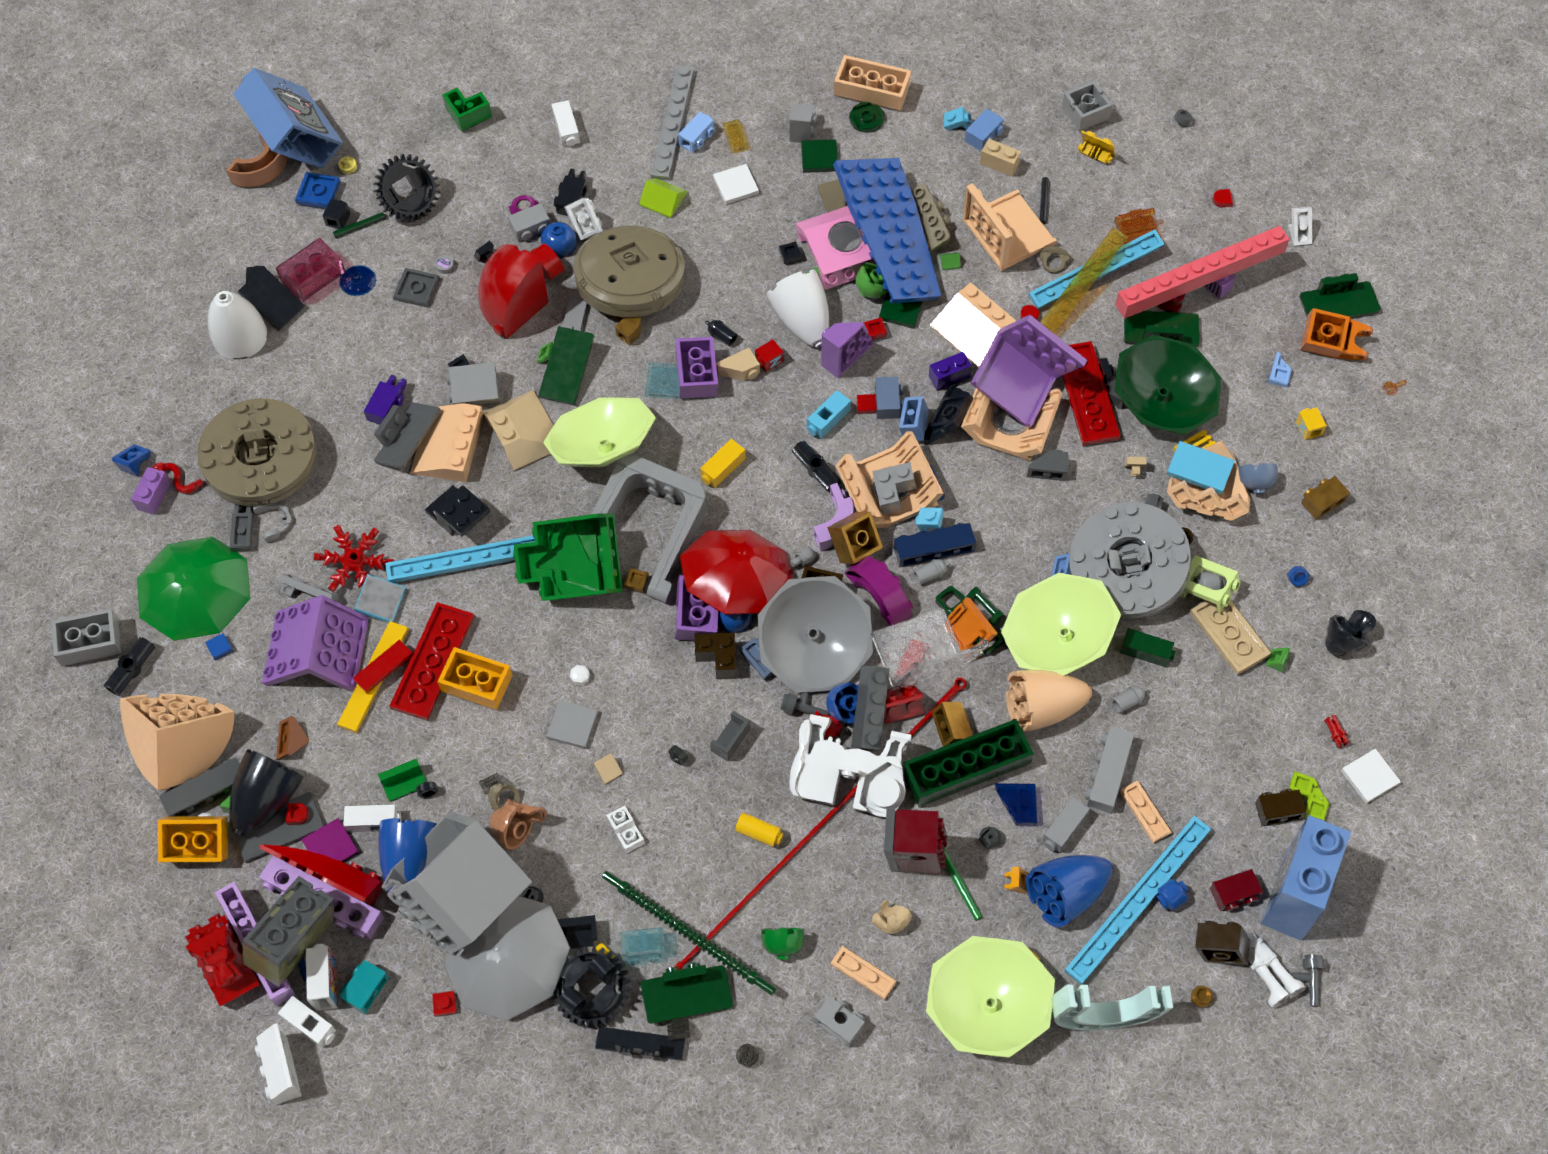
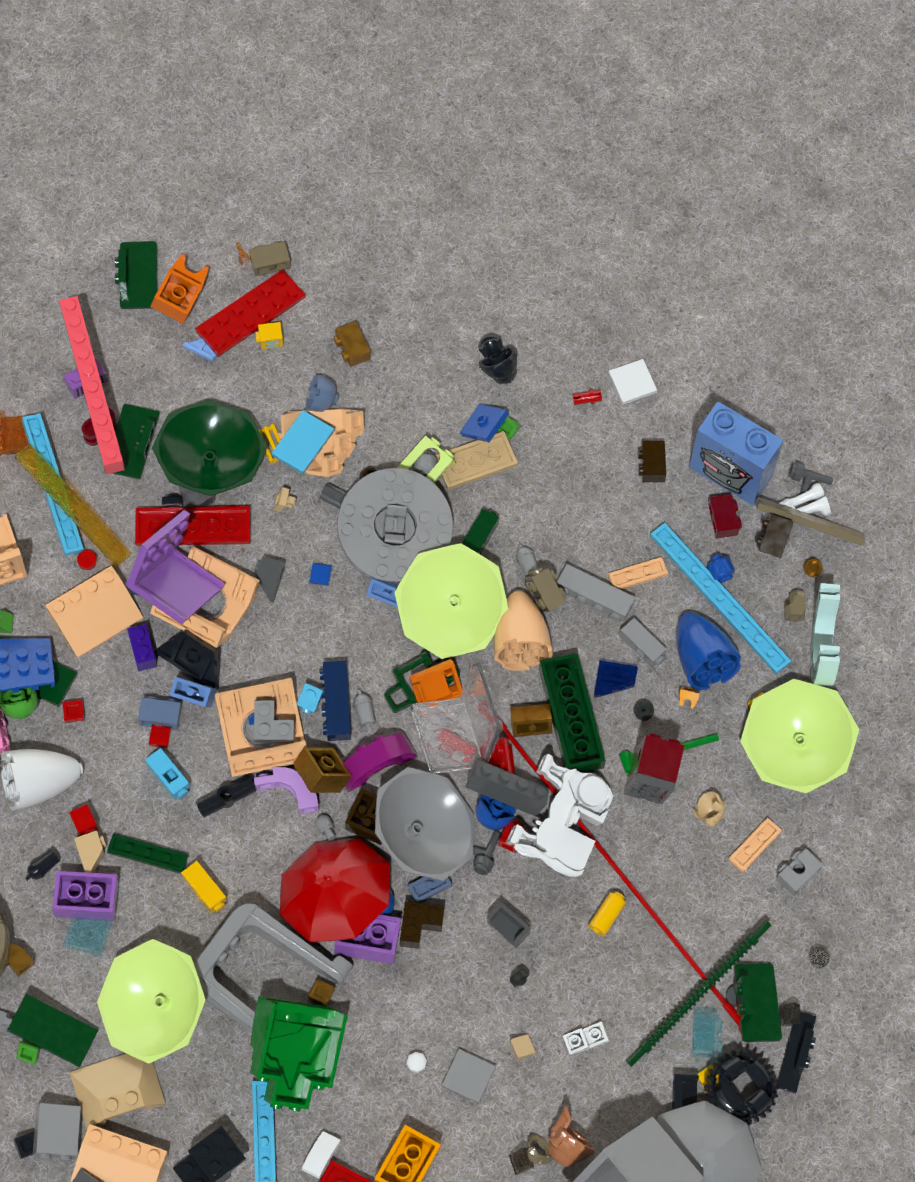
camera: 85 degrees left, 5 degrees up
(478, 603) = (320, 1155): none -> white slope
(749, 414) = (147, 853): none -> dark green tile
(782, 941) = (721, 905): green cylinder -> none
(844, 346) = (98, 744): medium lavender wedge -> none
(1048, 251) = (18, 527): dark tan piece -> none
(1066, 511) = (320, 574): none -> blue tile
(1097, 712) = (544, 588): none -> dark tan brick
(1144, 978) = (795, 606): none -> dark tan rock
(1253, 980) = (809, 521): none -> dark tan tile
(1273, 632) = (484, 423): none -> blue plate
(1298, 576) = (428, 389): blue tile -> none
(1301, 226) = (44, 285): white slope -> none
(1316, 803) = (635, 435): lime tile -> none
(1334, 404) = (246, 313): none -> red plate
(1396, 408) = (269, 258): none -> dark tan brick

